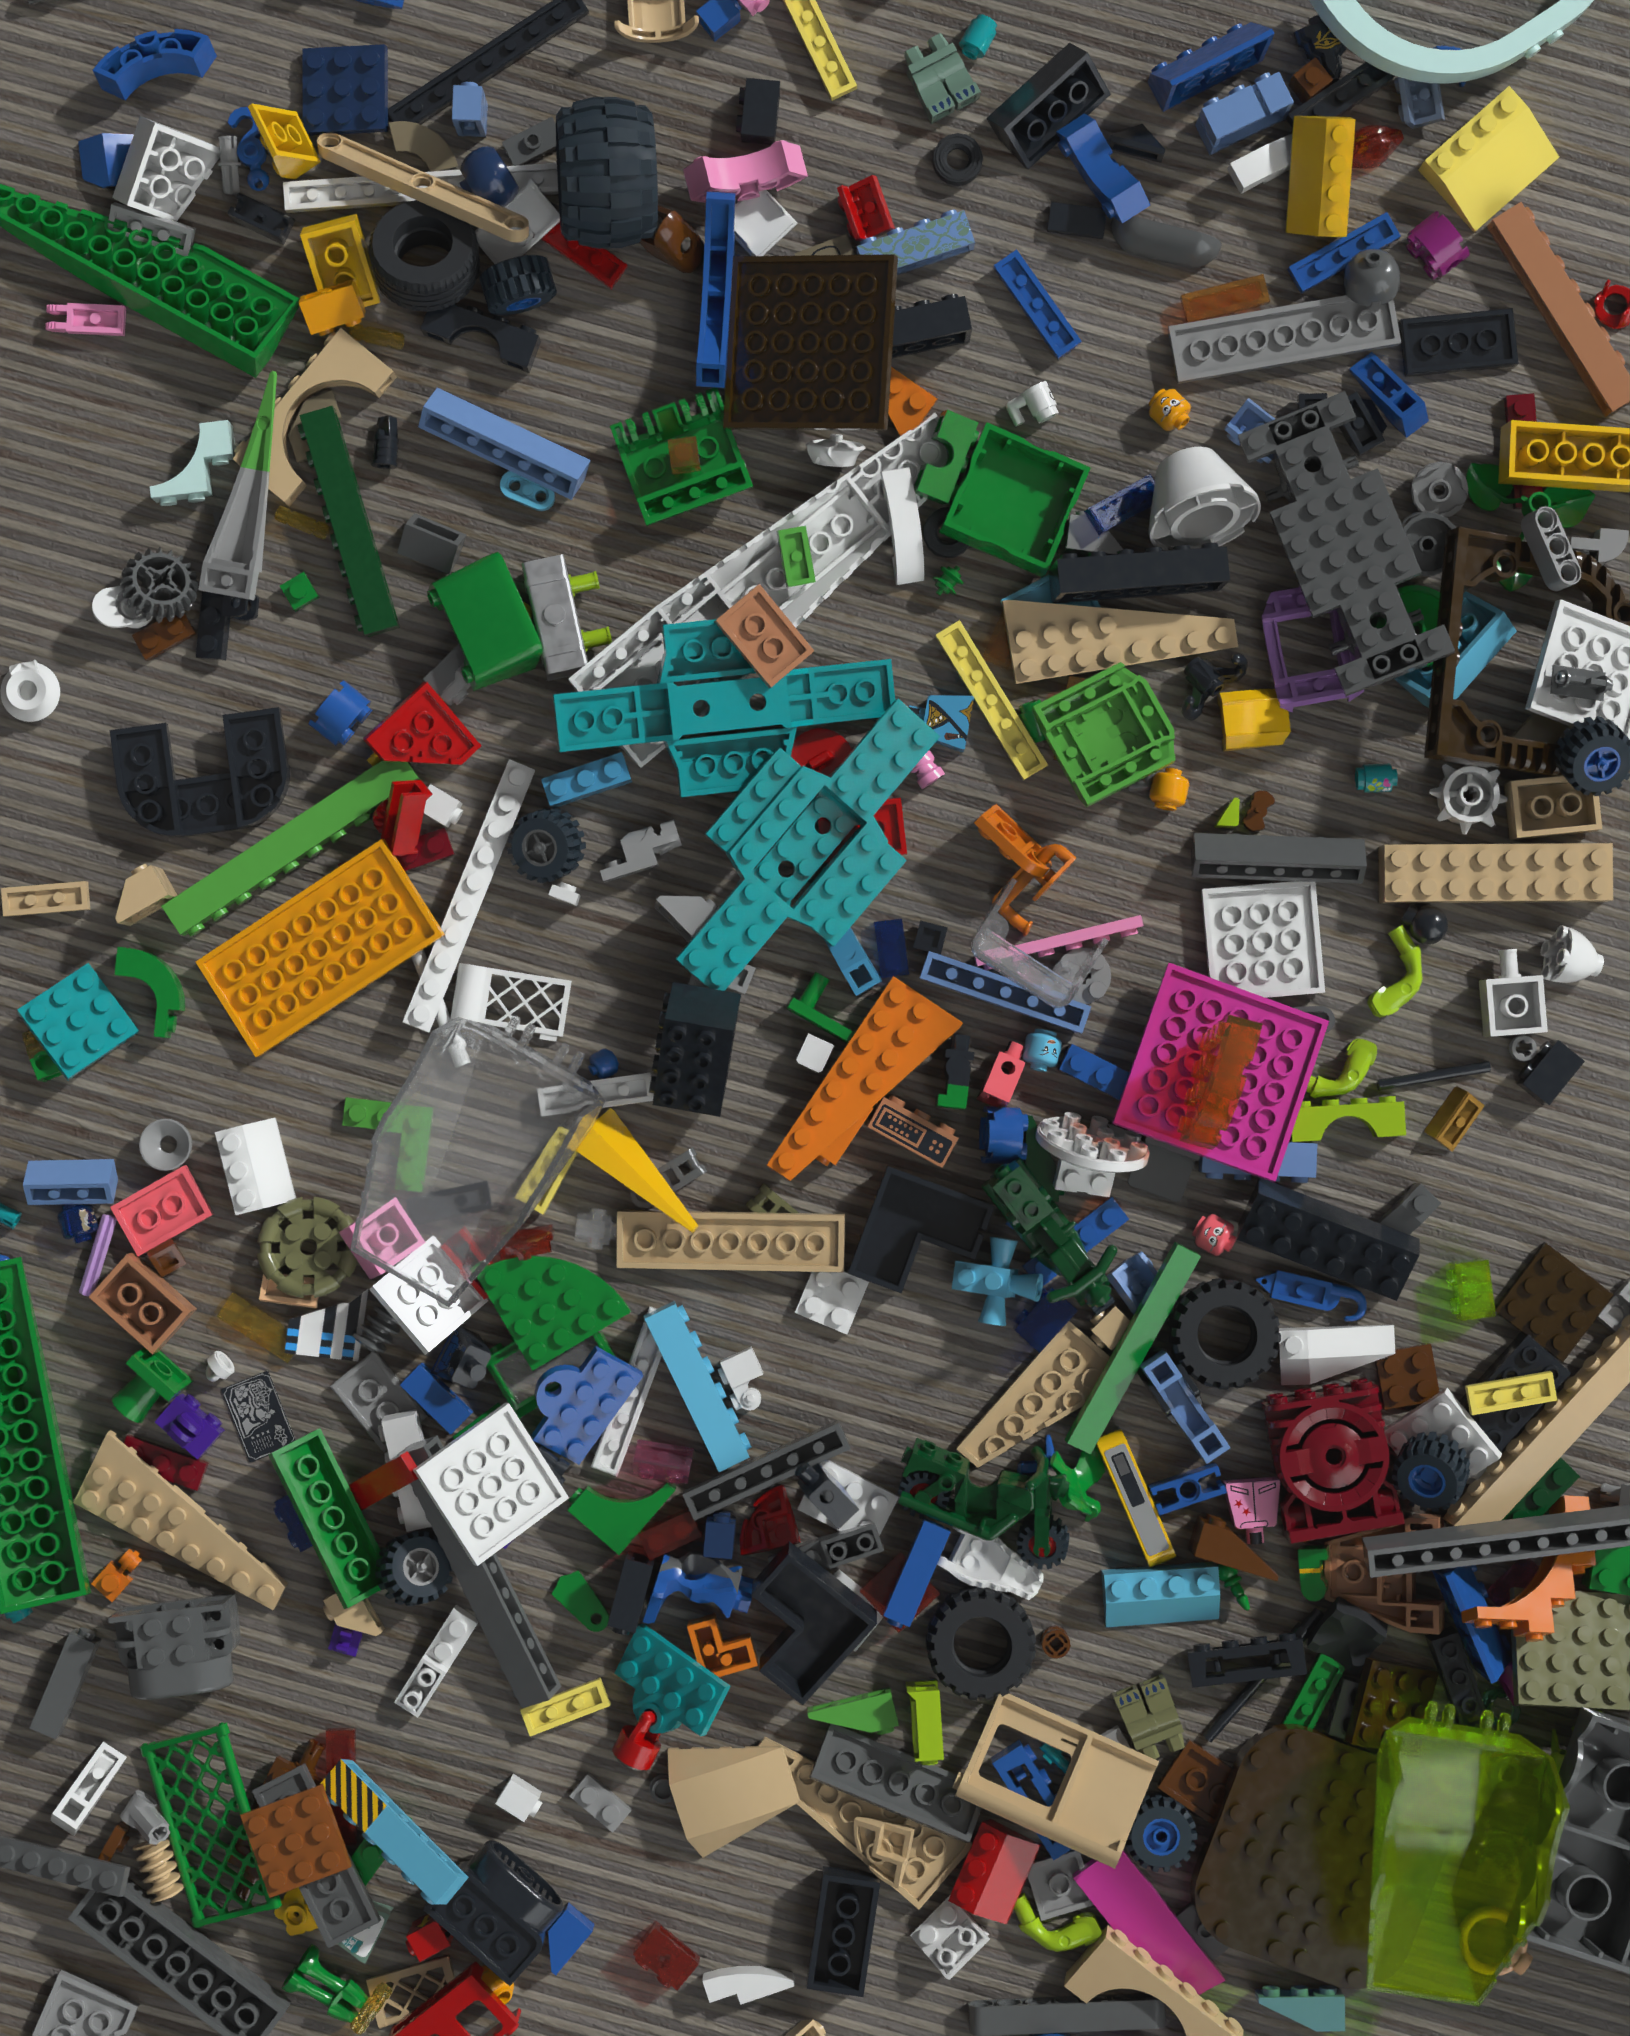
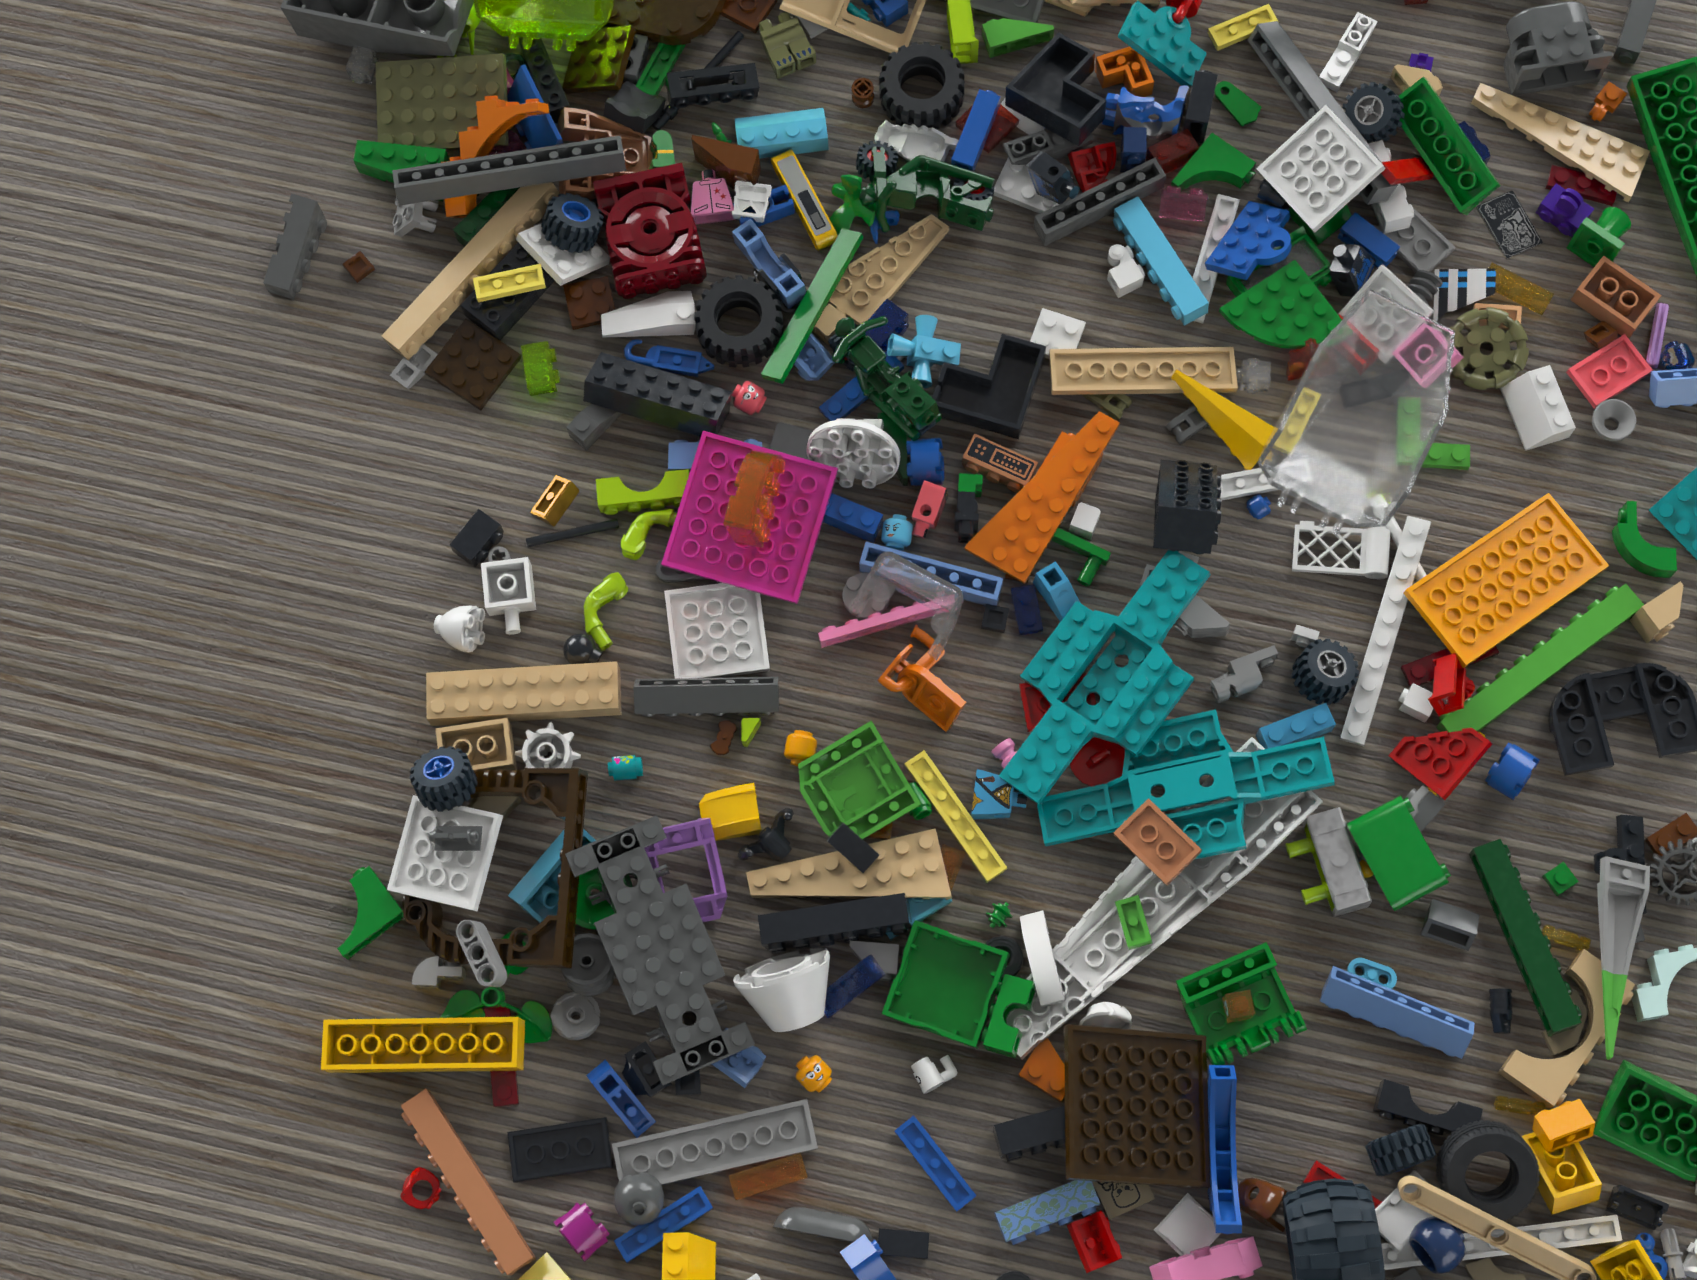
camera: 175 degrees left, 15 degrees down
(220, 1365) = (1546, 256): white tile -> none
(1115, 660) = (852, 847): none -> black tile
(1203, 1498) = (753, 196): none -> white piece

